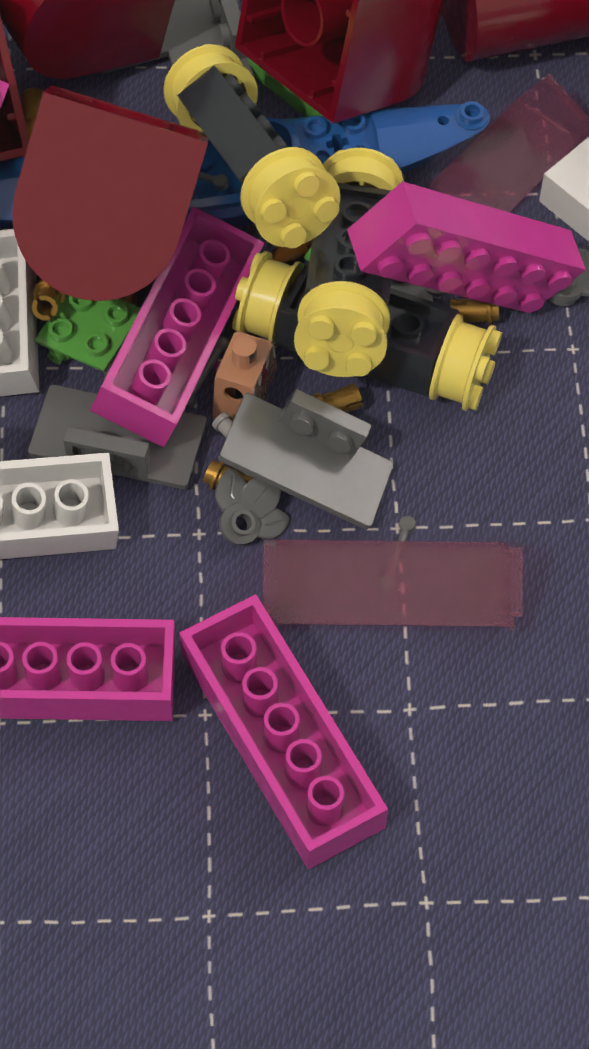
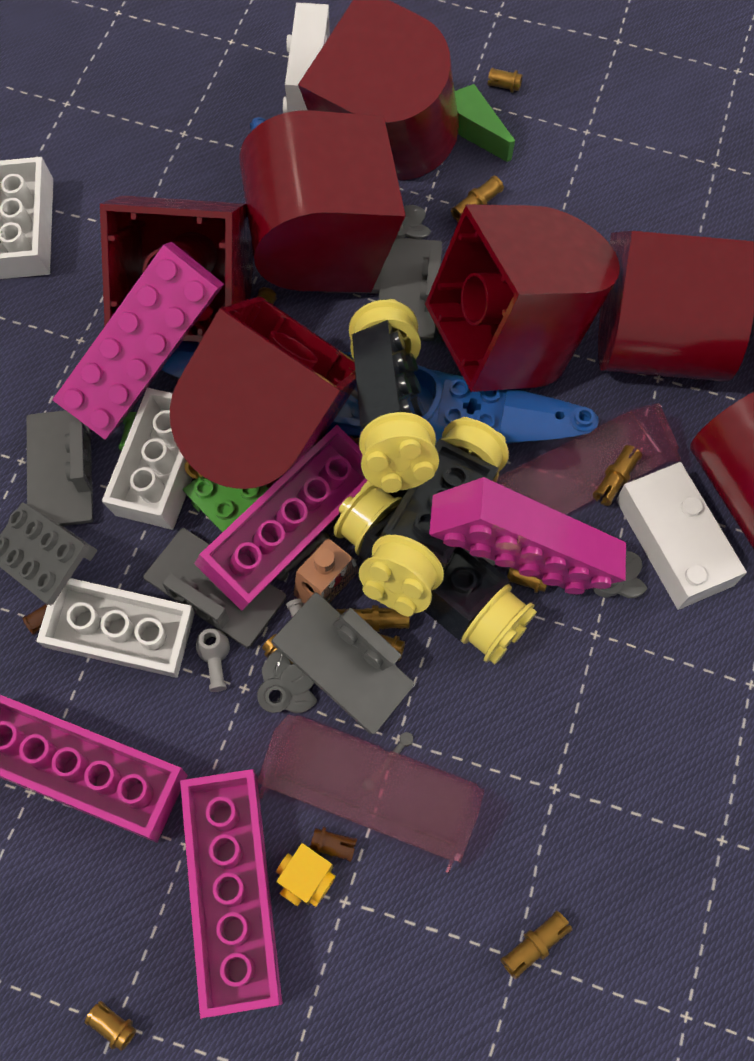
camera: 20 degrees right, 5 degrees up
(148, 508) = (213, 656): none -> light grey bar
(206, 913) = (110, 1026): none -> pearl gold pin
(357, 691) = (305, 876): none -> yellow brick
(372, 652) = (333, 844): none -> reddish brown pin
(530, 170) = (617, 475): none -> pearl gold pin

